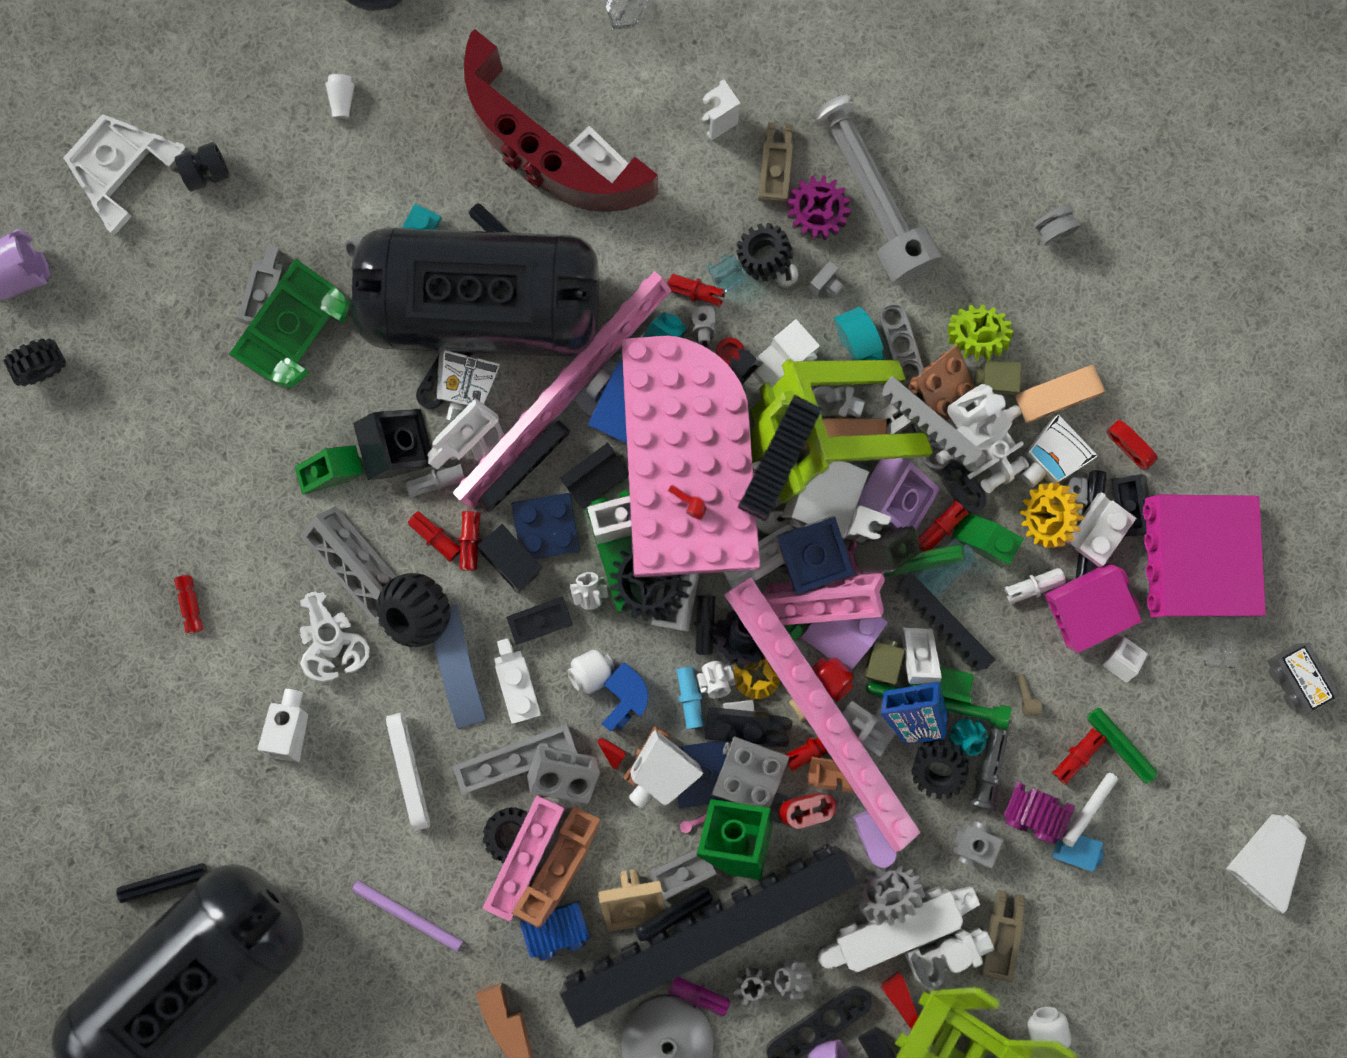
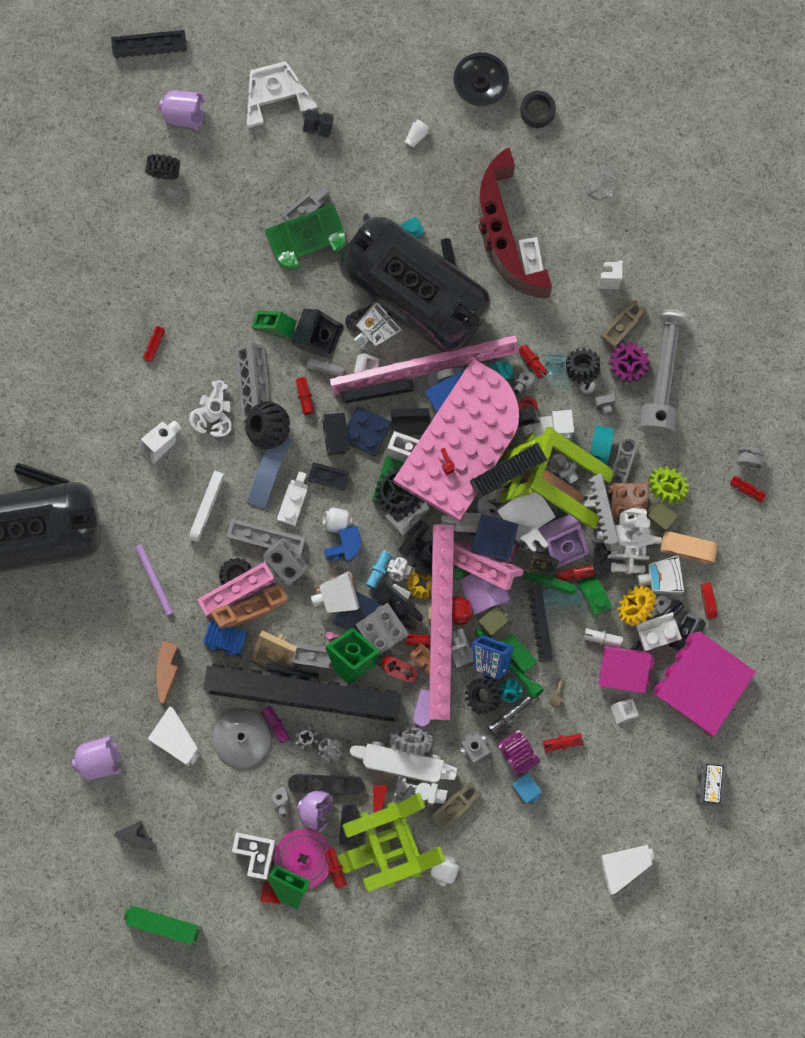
camera: 35 degrees right, 5 degrees down
(462, 433) = (356, 352): white hinge -> none
(469, 540) = (320, 410): red axle -> none
(589, 590) = (365, 478): white gear -> none
(612, 752) = (319, 571): red slope -> none
(920, 656) = (515, 630): white plate -> none
(1078, 268) = (747, 489): none -> red axle
(1090, 809) = (547, 771): white bar -> none
(1122, 745) = (590, 753): green axle -> none

